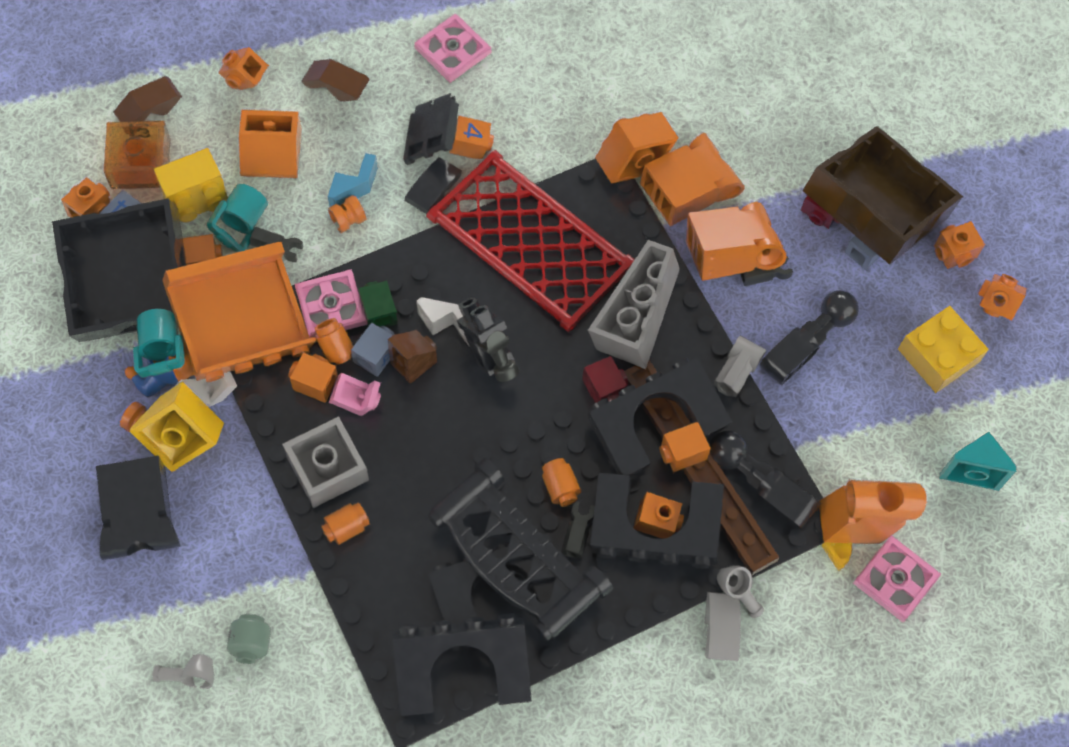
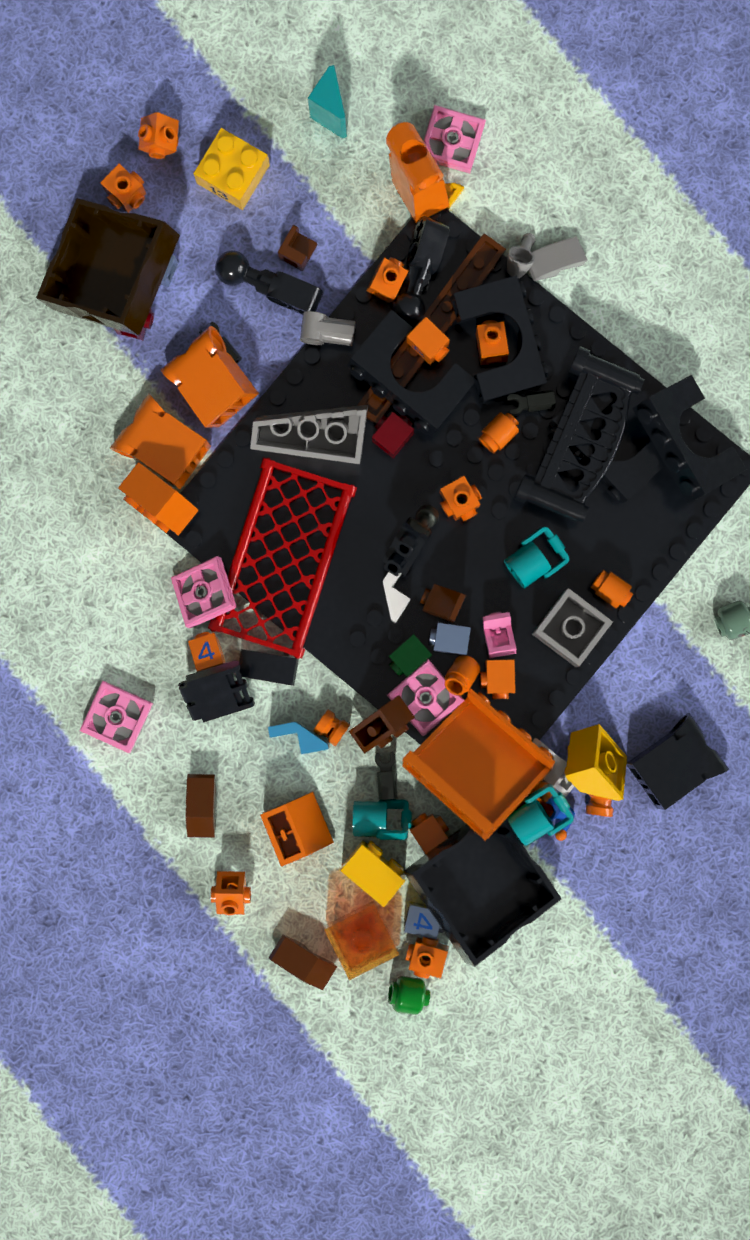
camera: 105 degrees left, 20 degrees up
(63, 174) = (408, 995): none -> green head
(324, 250) = (379, 726): none -> reddish brown brick
(412, 456) = (529, 562): none -> teal piece
(509, 414) = (460, 489): none -> orange brick
(530, 157) = (203, 592): none -> bright pink piece
(768, 442) = (387, 279): none -> orange brick
(836, 377) = (296, 249): none -> reddish brown panel

